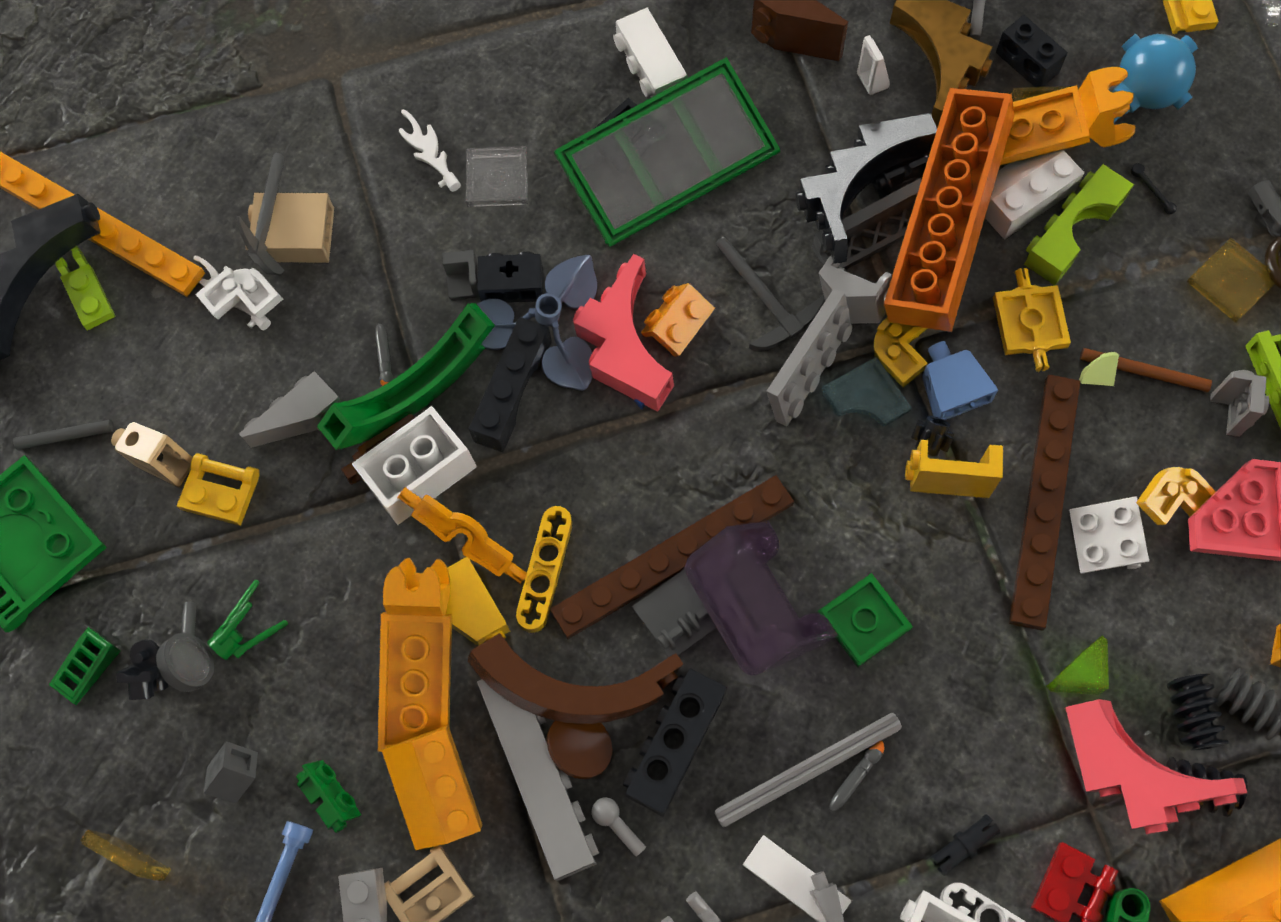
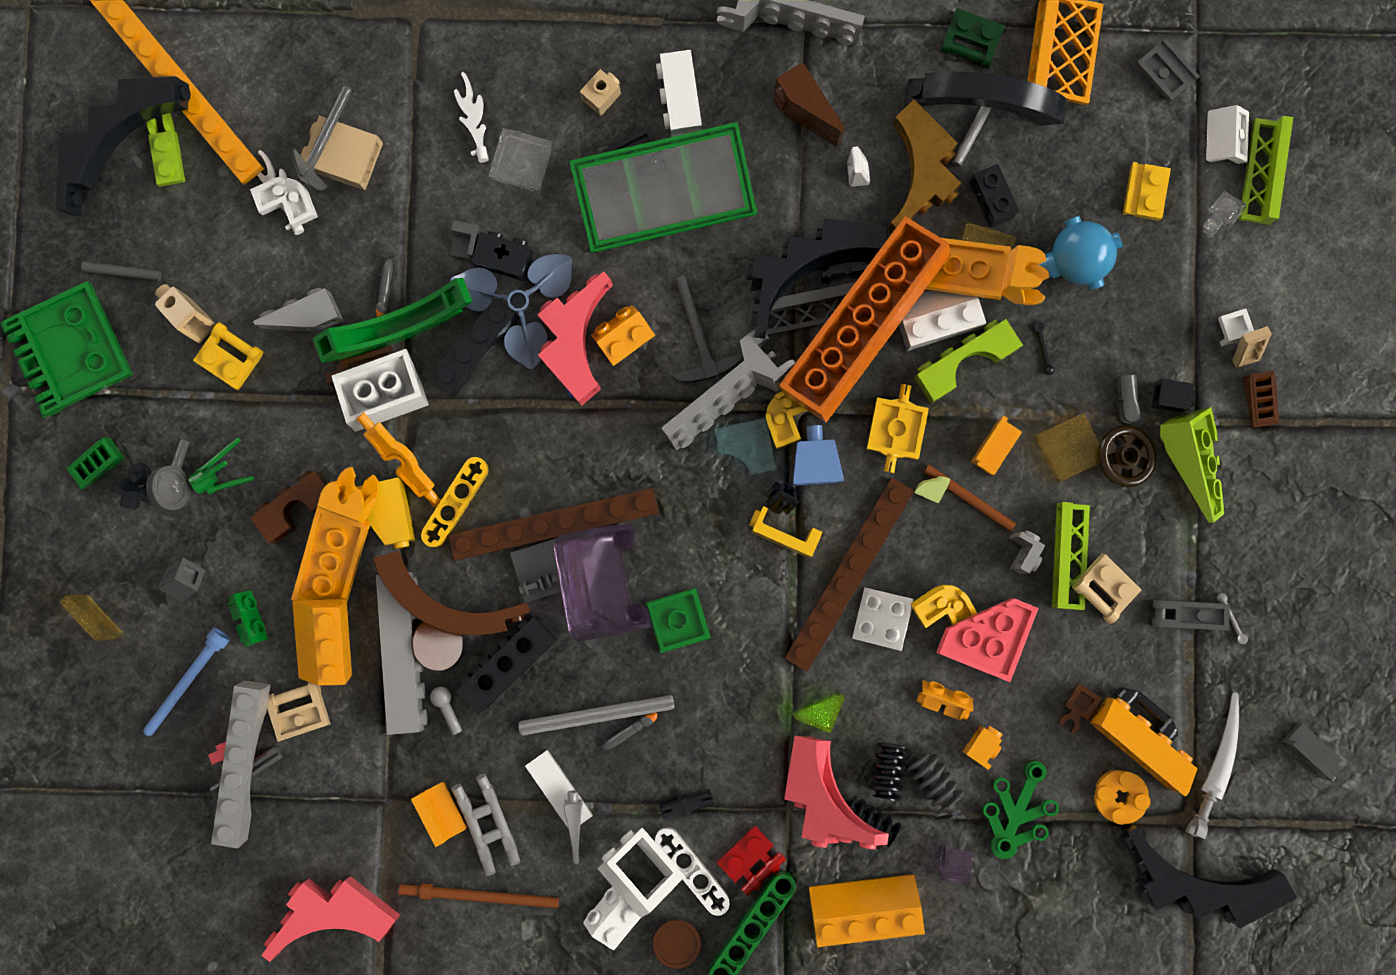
camera: 20 degrees right, 15 degrees up
(327, 654) = (274, 517): none -> reddish brown arch
(562, 81) = (601, 91): none -> tan brick
(1149, 304) = (996, 446): none -> light orange panel
(1210, 605) = (957, 702): none -> light orange hinge

